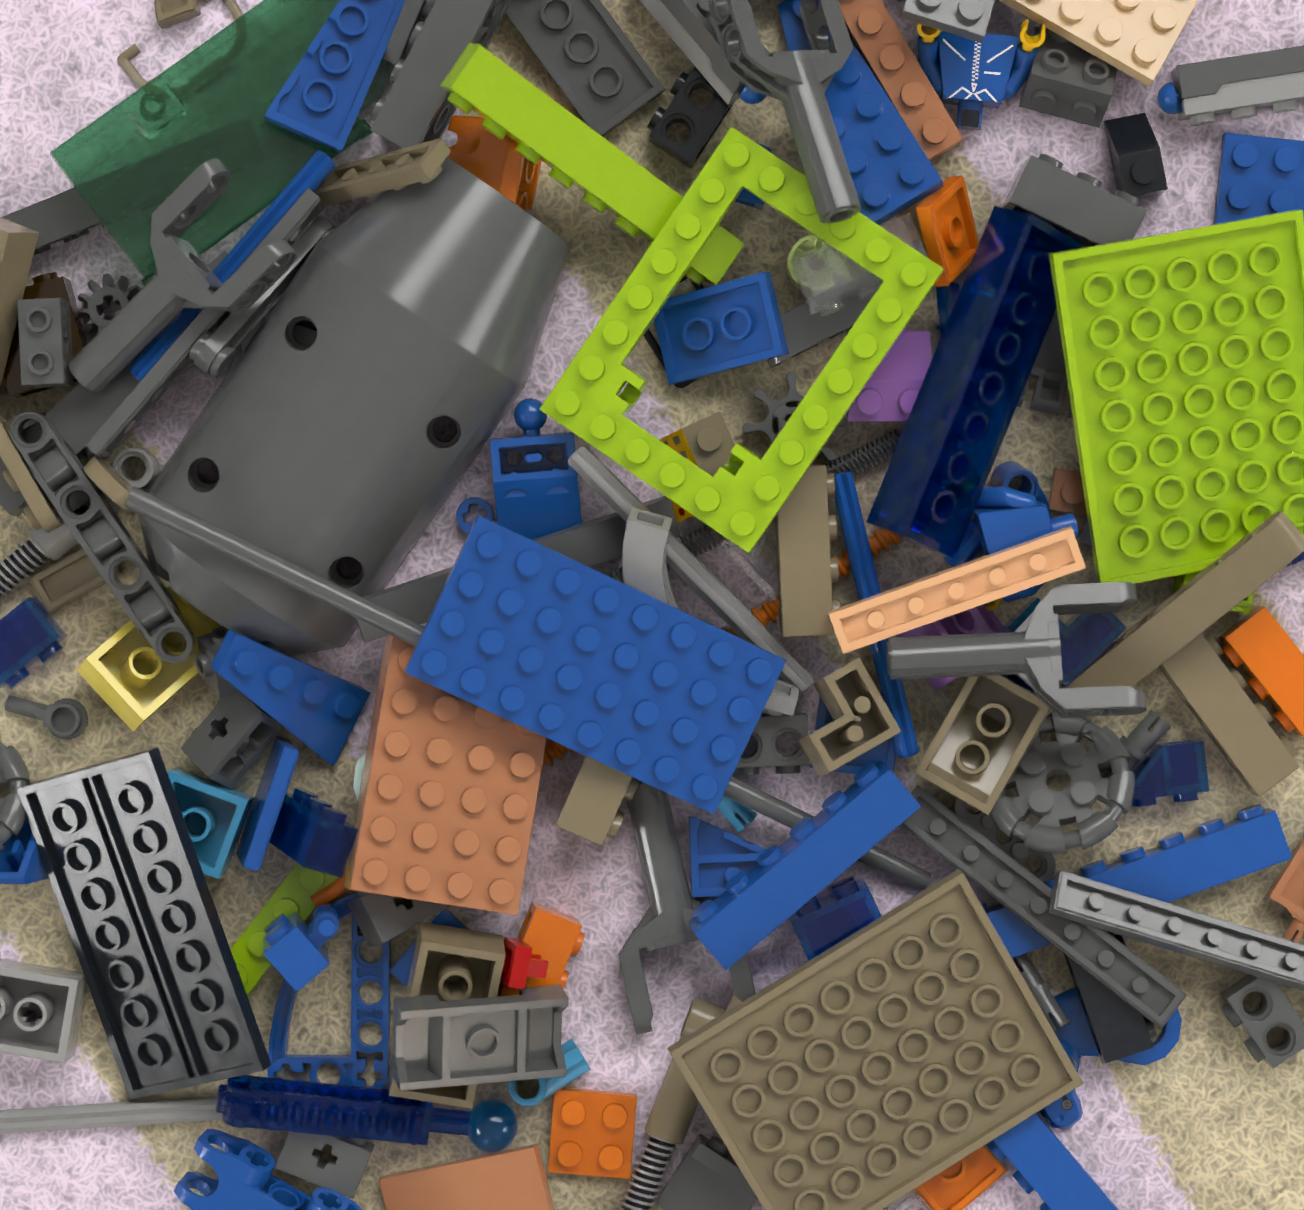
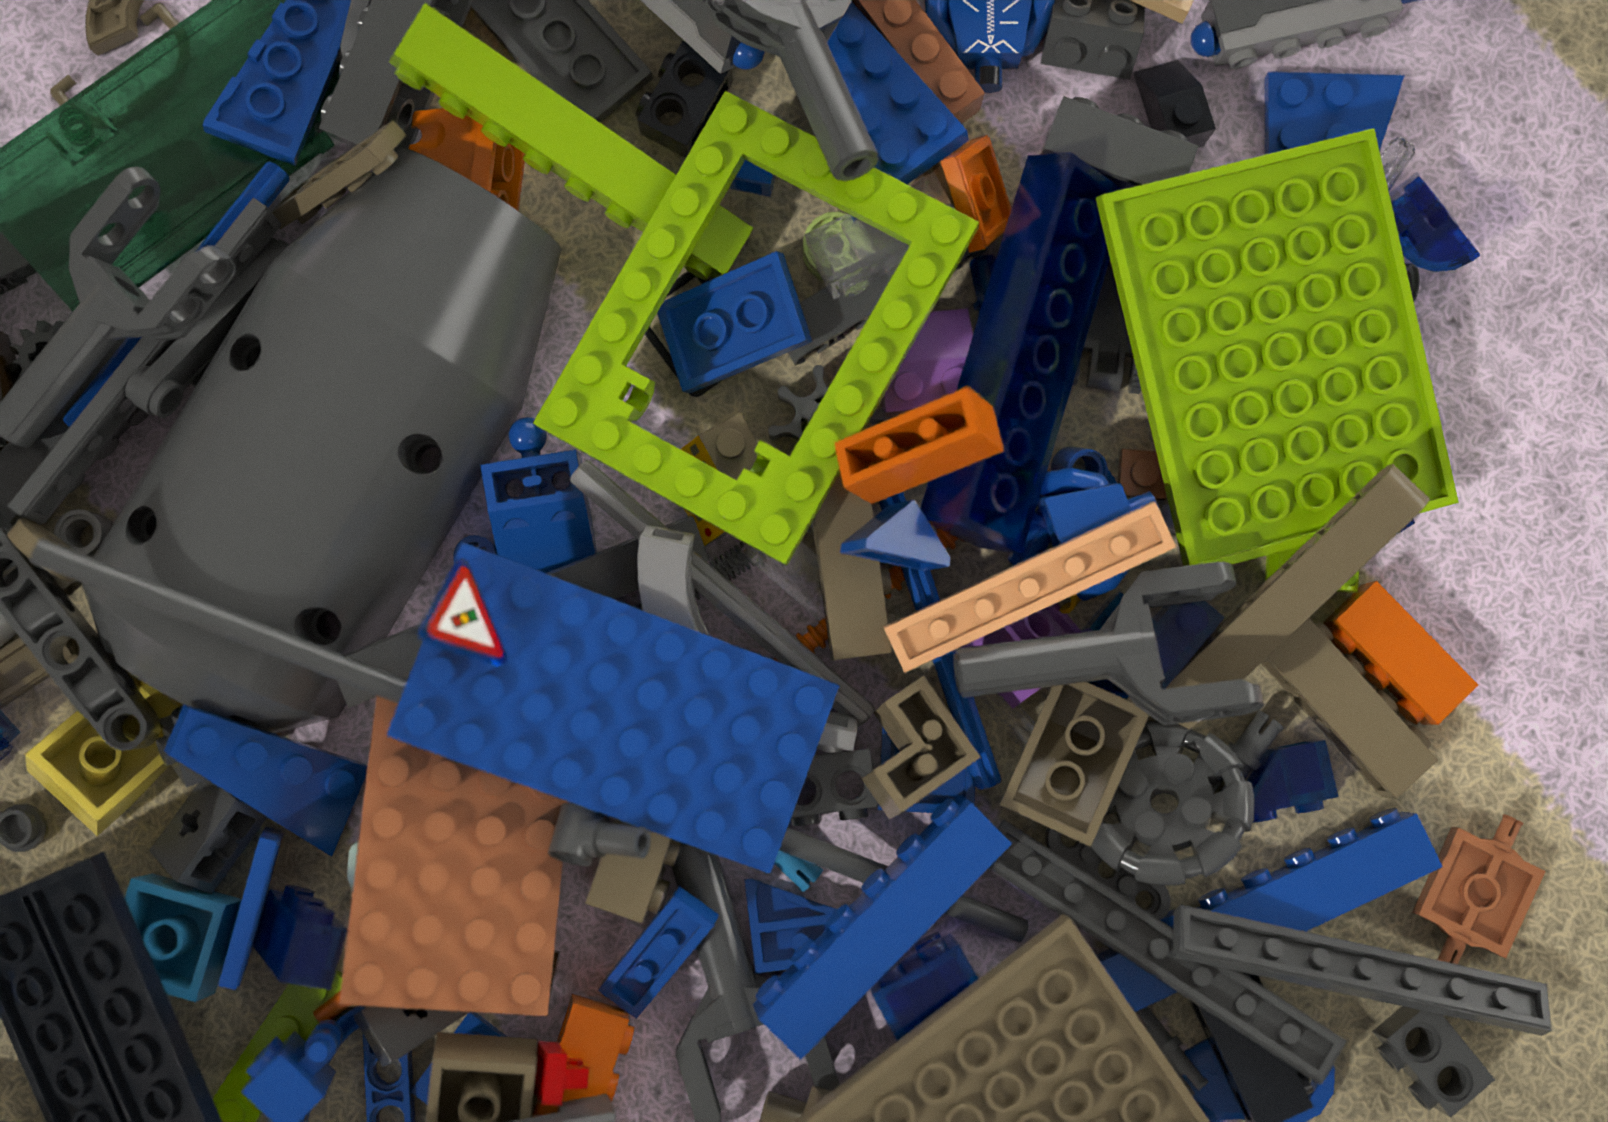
camera: 10 degrees left, 5 degrees down
(477, 582) = (462, 620): none -> piece
(563, 767) = (588, 834): none -> dark grey pin
(610, 872) = (658, 952): none -> blue plate
(848, 535) = (900, 538): none -> blue slope
(872, 464) = (919, 446): none -> orange brick

